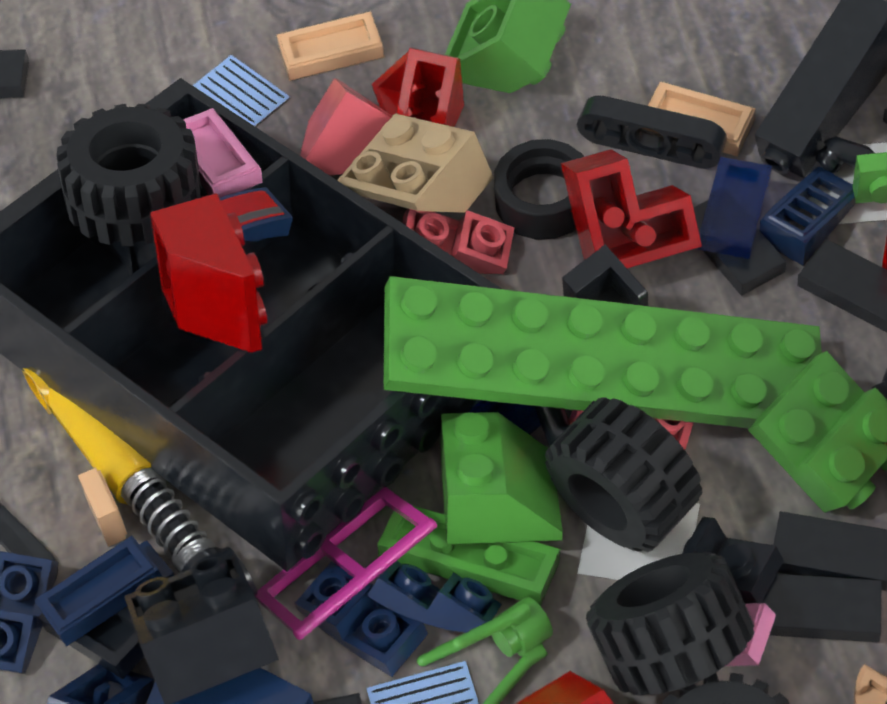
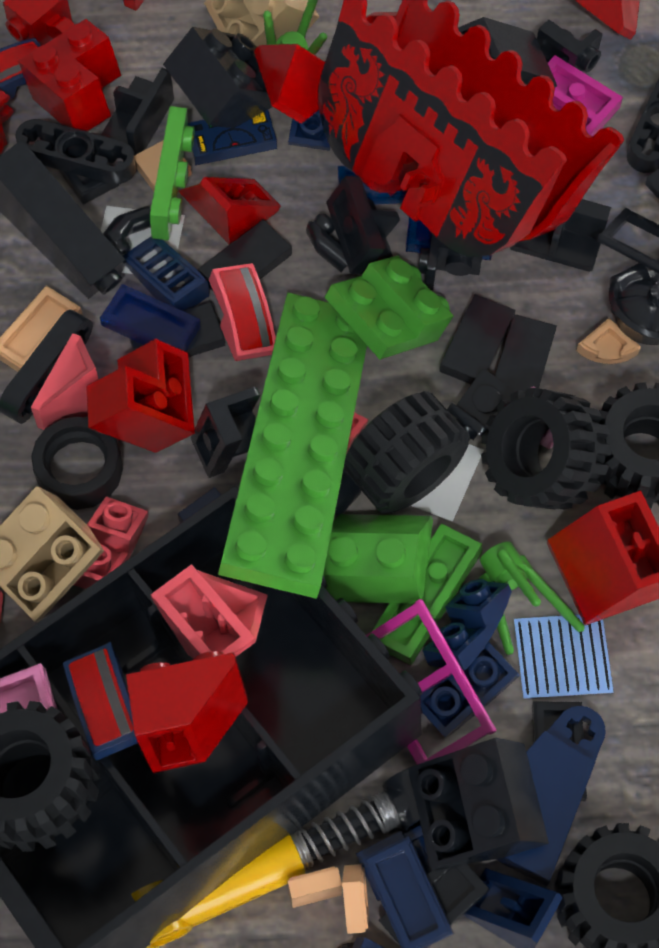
camera: 85 degrees left, 10 degrees up
(88, 538) = (355, 898): none -> light nougat tile
(334, 288) = (210, 612): none -> coral slope
(652, 153) = (65, 387): none -> coral slope
(781, 284) = (246, 313): none -> slope

